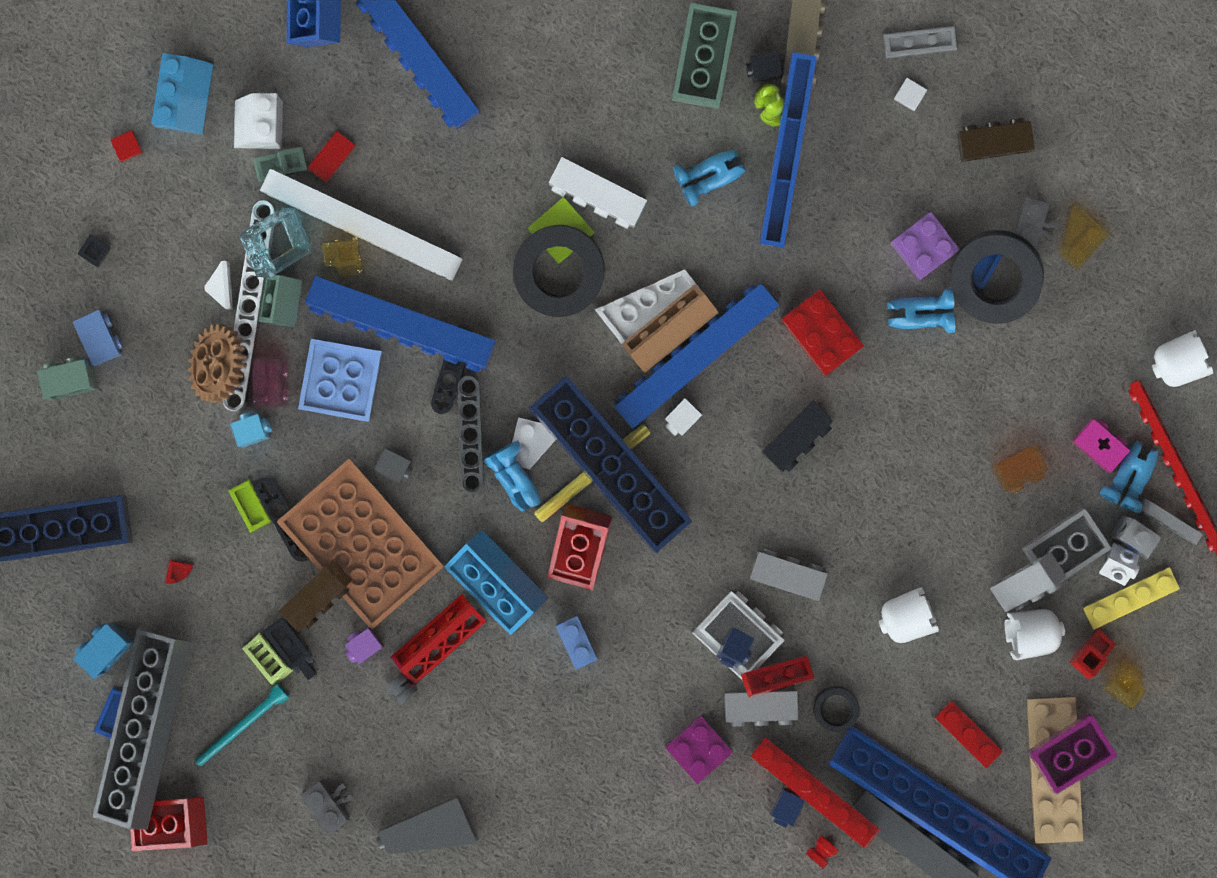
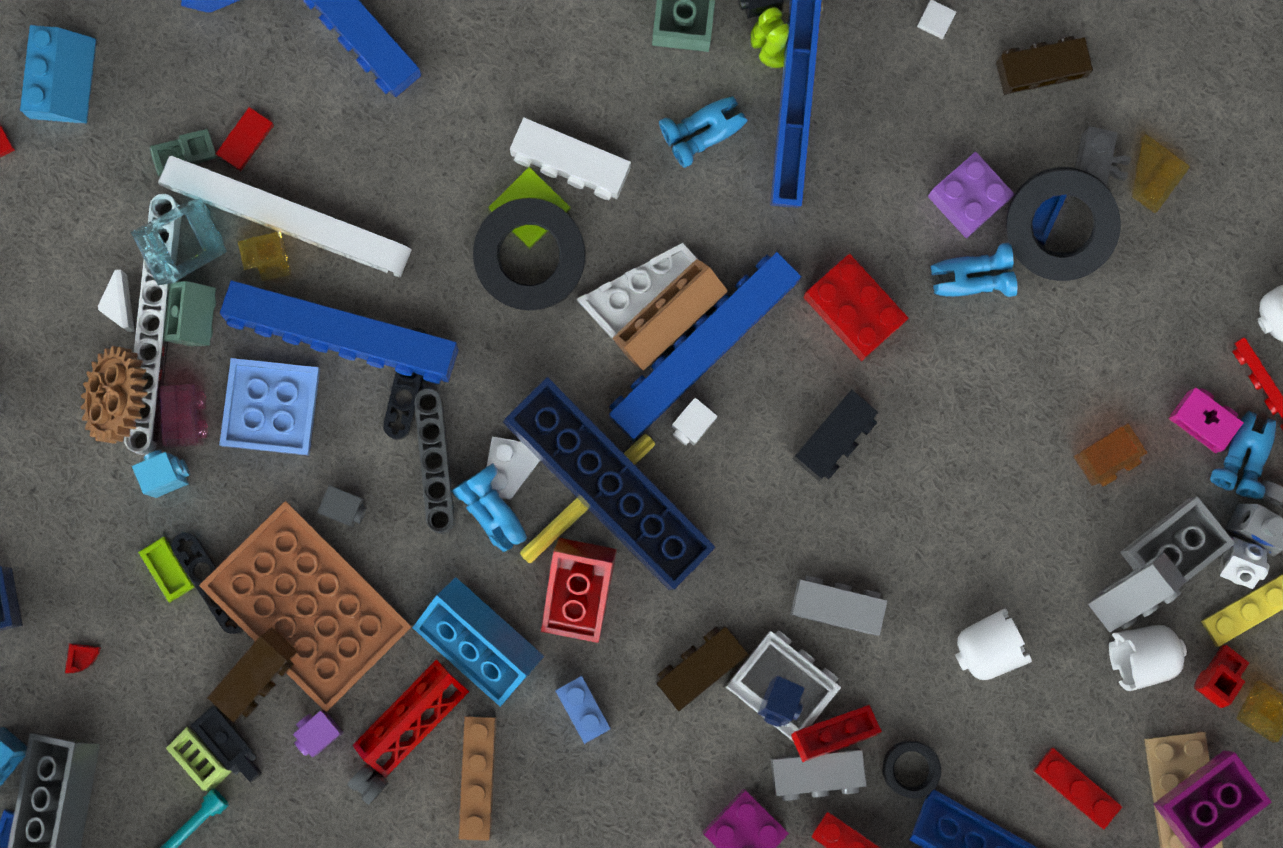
camera: 15 degrees left, 5 degrees down
(258, 121) = (154, 99): white slope -> none
(489, 690) = (477, 778): none -> medium nougat brick
(673, 616) = (700, 667): none -> dark brown brick

